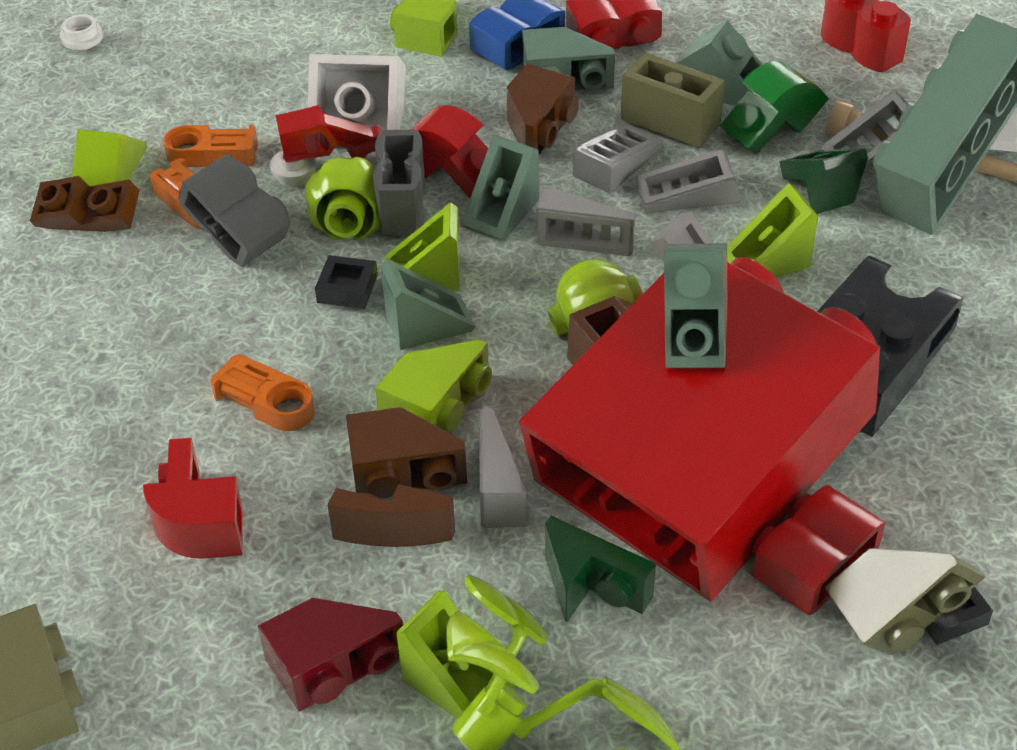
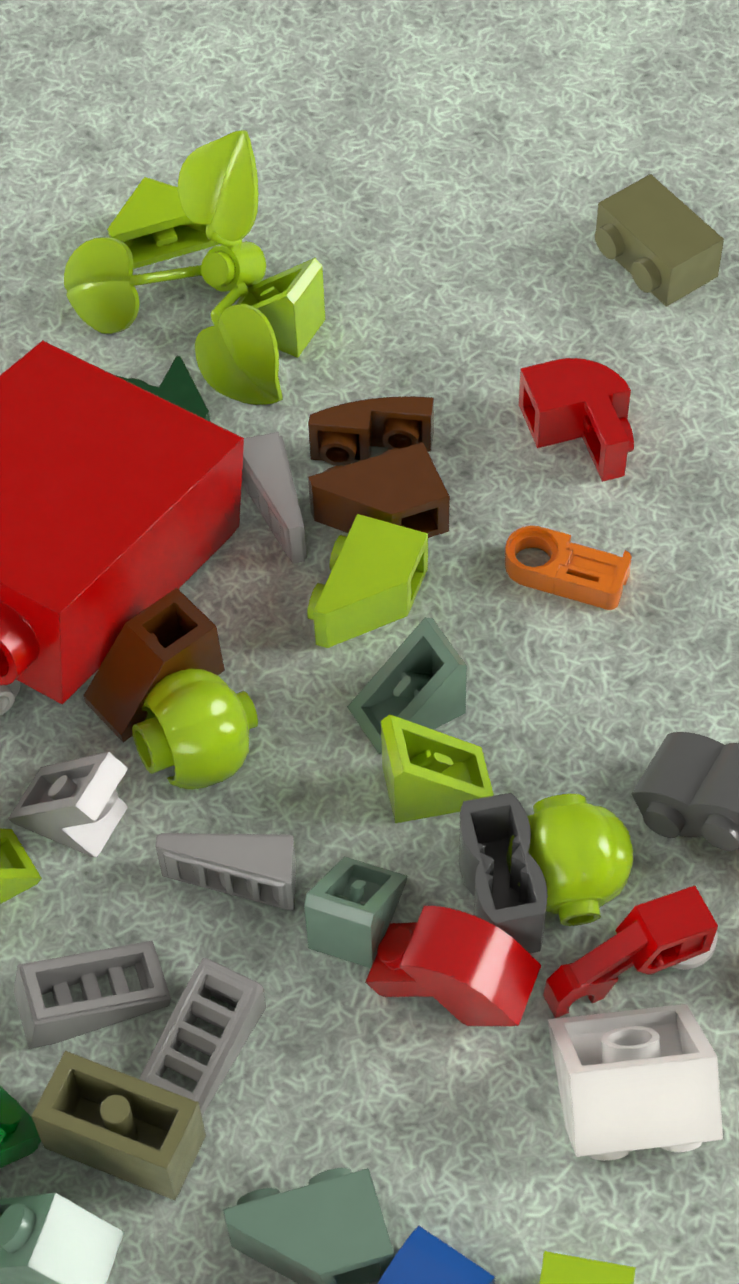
camera: 170 degrees right, 10 degrees up
(328, 646) = (393, 305): dark red slope -> none
(346, 282) = (526, 727): black plate -> none
(540, 105) = (340, 1102): reddish brown slope -> none
(695, 305) = (49, 504): sand green slope -> none

